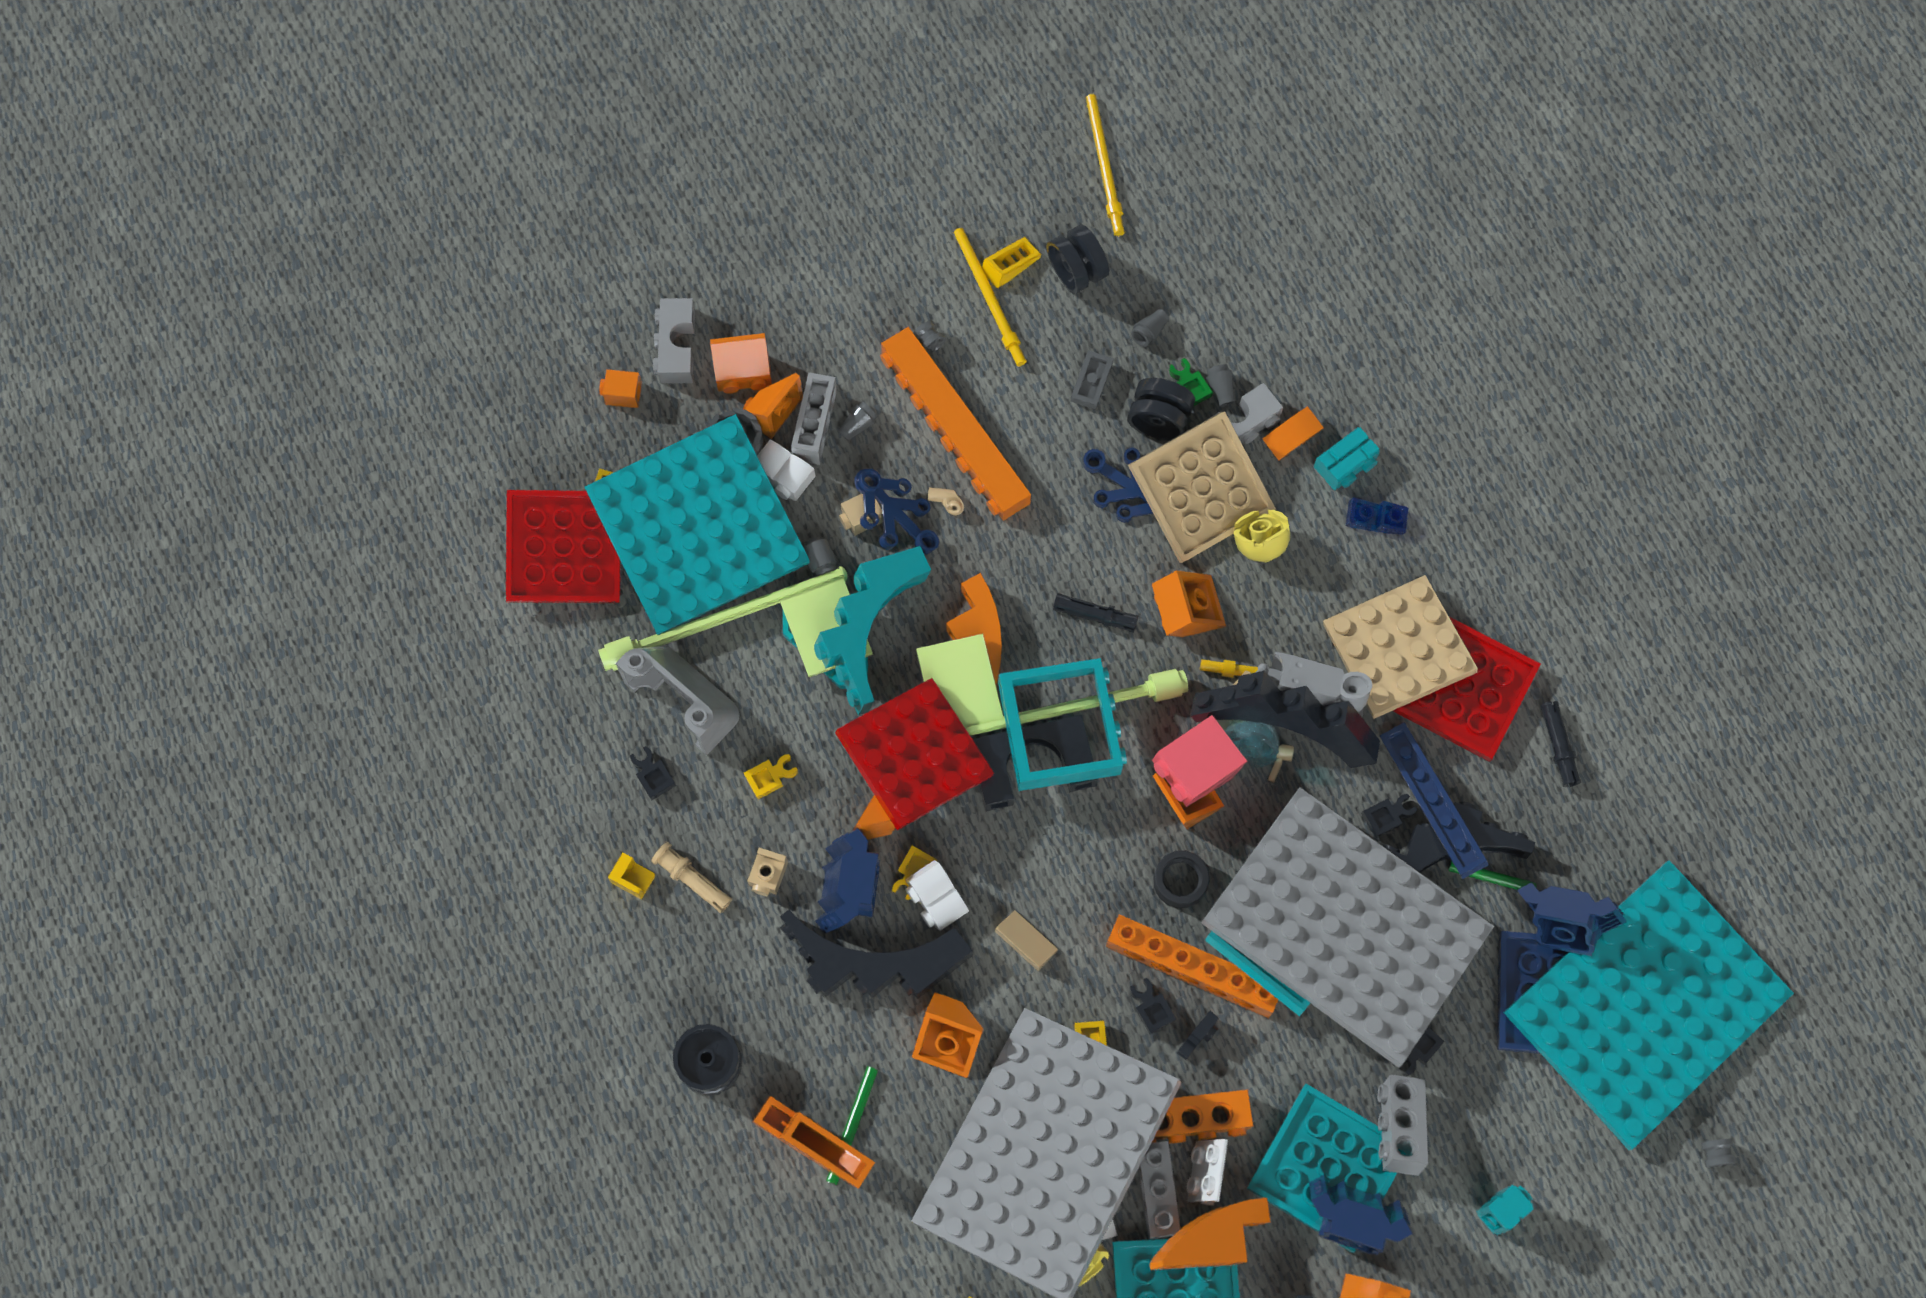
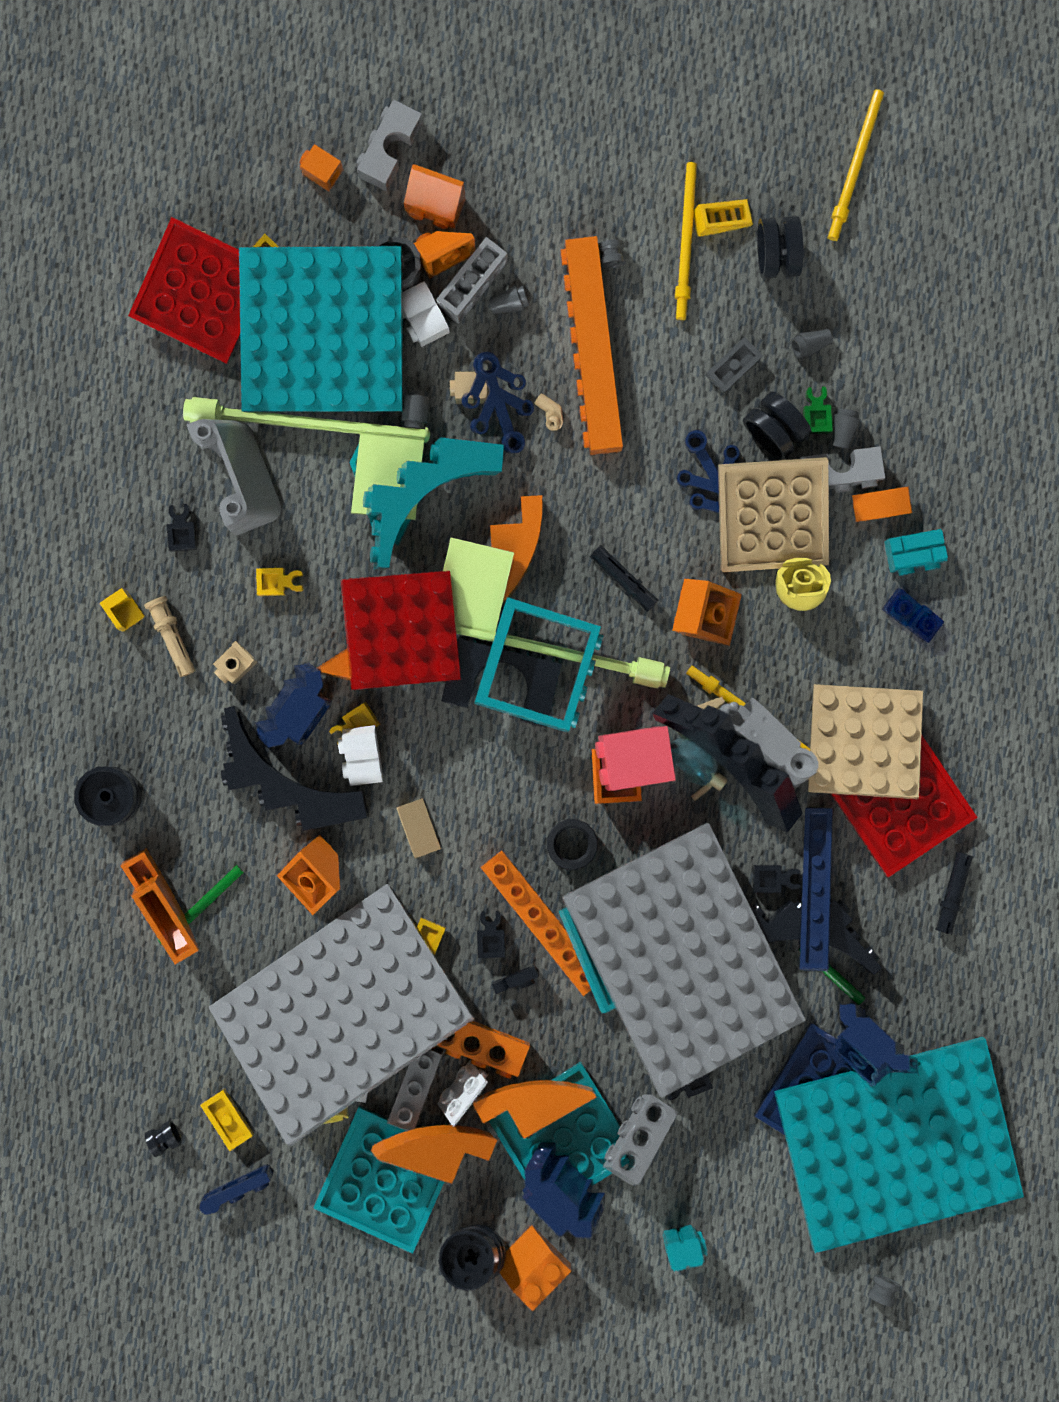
camera: 25 degrees right, 15 degrees up
(1282, 1143) = (533, 1103): none -> orange slope

